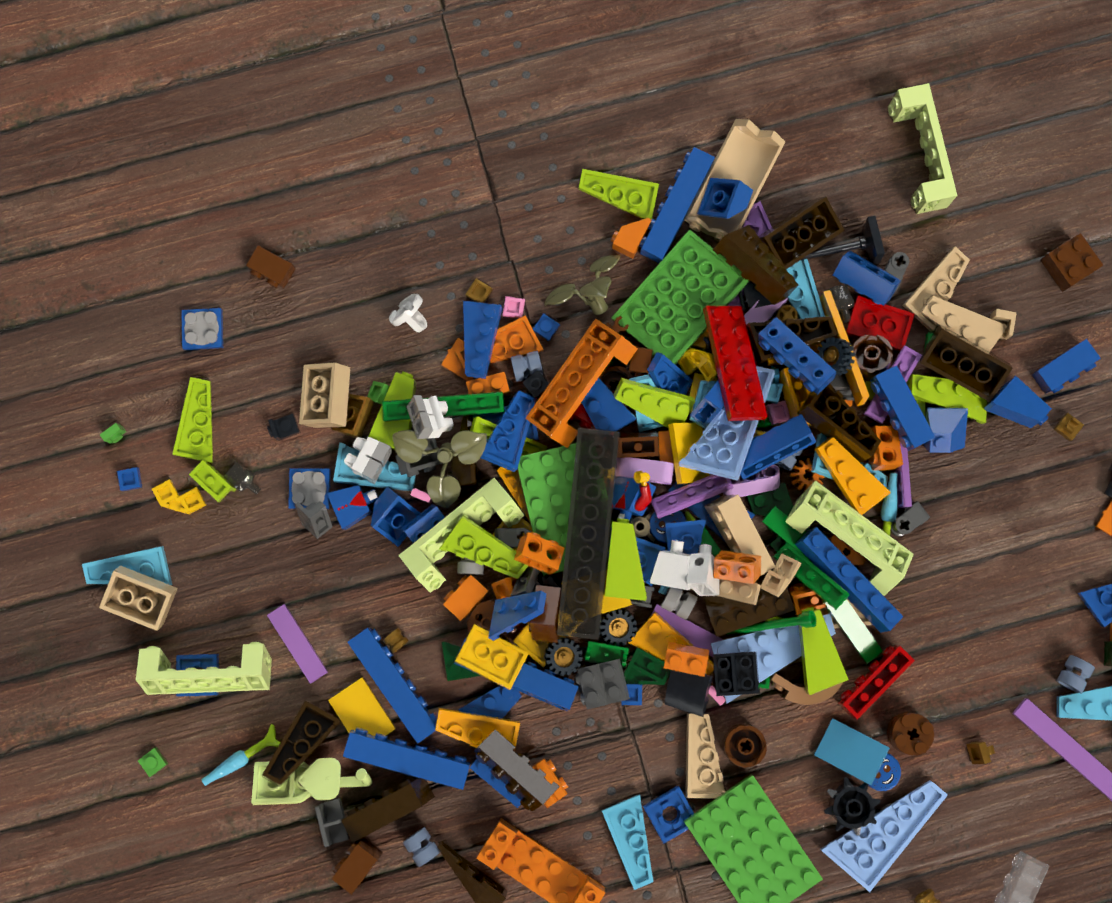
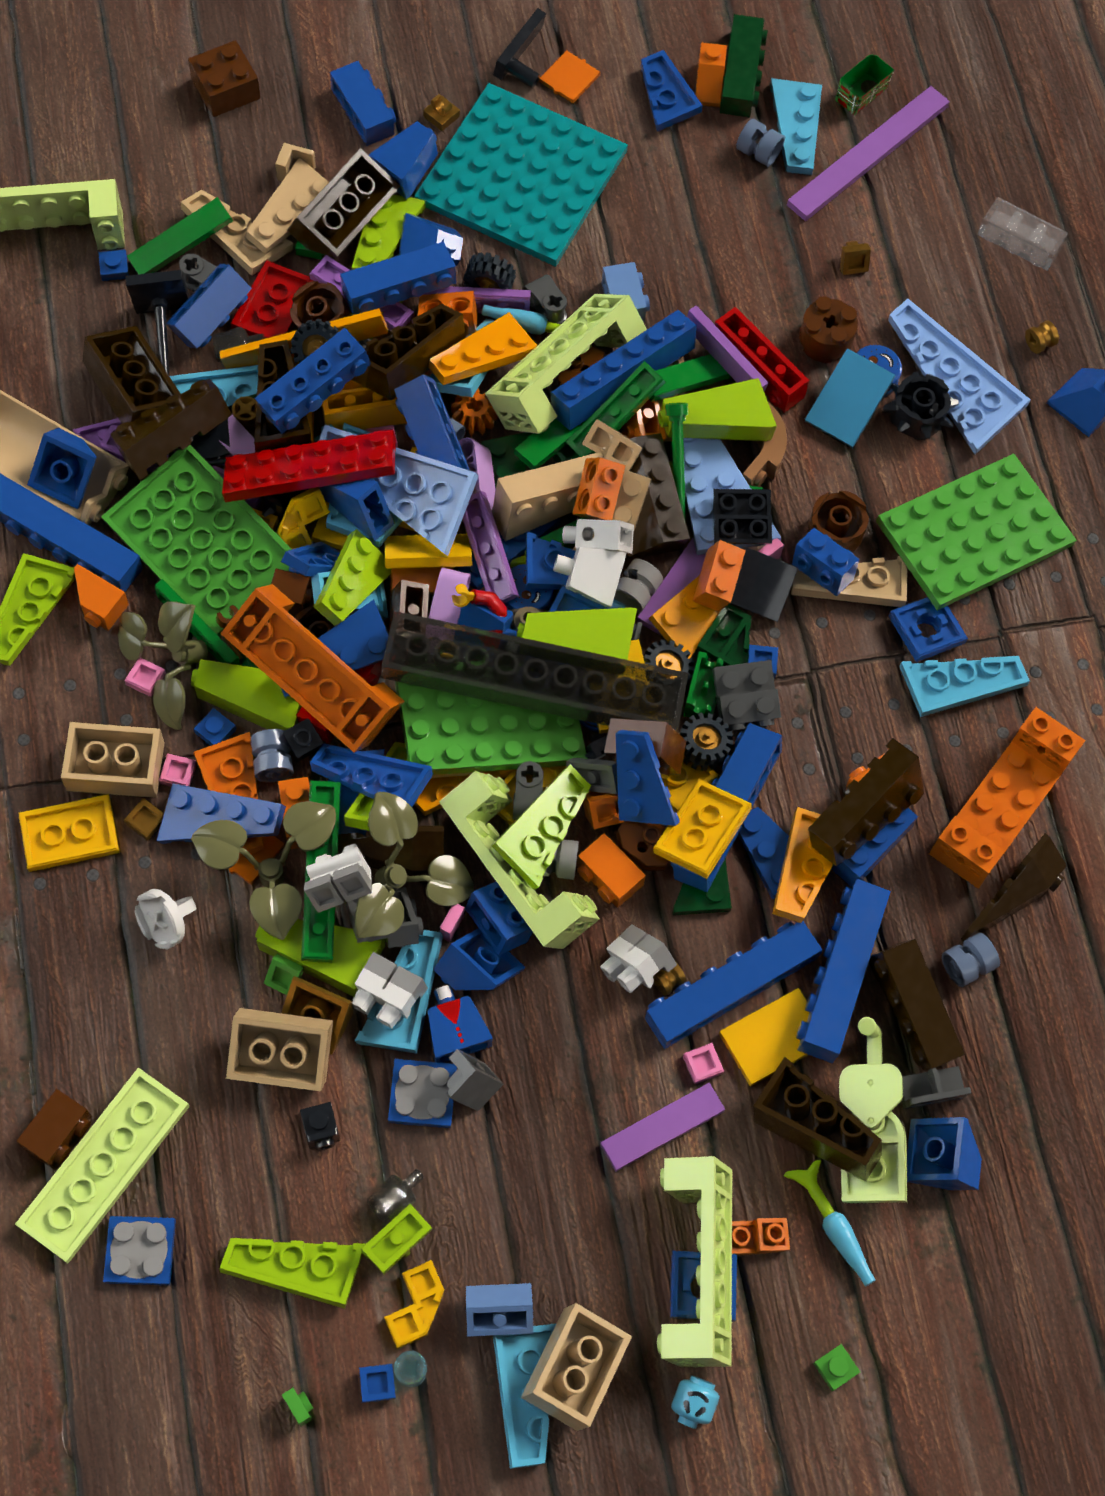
camera: 95 degrees left, 15 degrees down
(124, 673) = (695, 1401): none -> medium azure head
(143, 498) = (414, 1373): none -> clear light blue wheel
(173, 548) = (499, 1309): none -> medium blue brick
(231, 709) = (760, 1236): none -> orange slope
(251, 299) = (102, 1165): none -> yellowish green plate
(287, 828) = (943, 1154): none -> blue slope
(341, 667) = (703, 1063): none -> bright pink tile
(353, 870) = (999, 1049): reddish brown brick -> none
(403, 620) = (636, 959): none -> white hips
(465, 245) = (68, 833): none -> yellow tile
(468, 394) = (275, 904): none -> olive plant
(513, 264) = (112, 759): none -> tan brick
(538, 557) = (557, 747): orange brick -> none
(572, 331) = (245, 693): none -> lime slope
(579, 276) = (144, 676): none -> bright pink tile
(621, 299) = (199, 628): none -> green tile
(708, 736) = (825, 561): none -> blue brick
(876, 655) = (722, 349): none -> medium lavender tile
(898, 208) = (113, 265): none -> blue plate
(921, 475) = (489, 272): none -> black wheel
(923, 576) = (625, 280): none -> medium blue brick
(924, 250) = (180, 238): none -> green tile
(1022, 492) = (521, 174): none -> teal plate

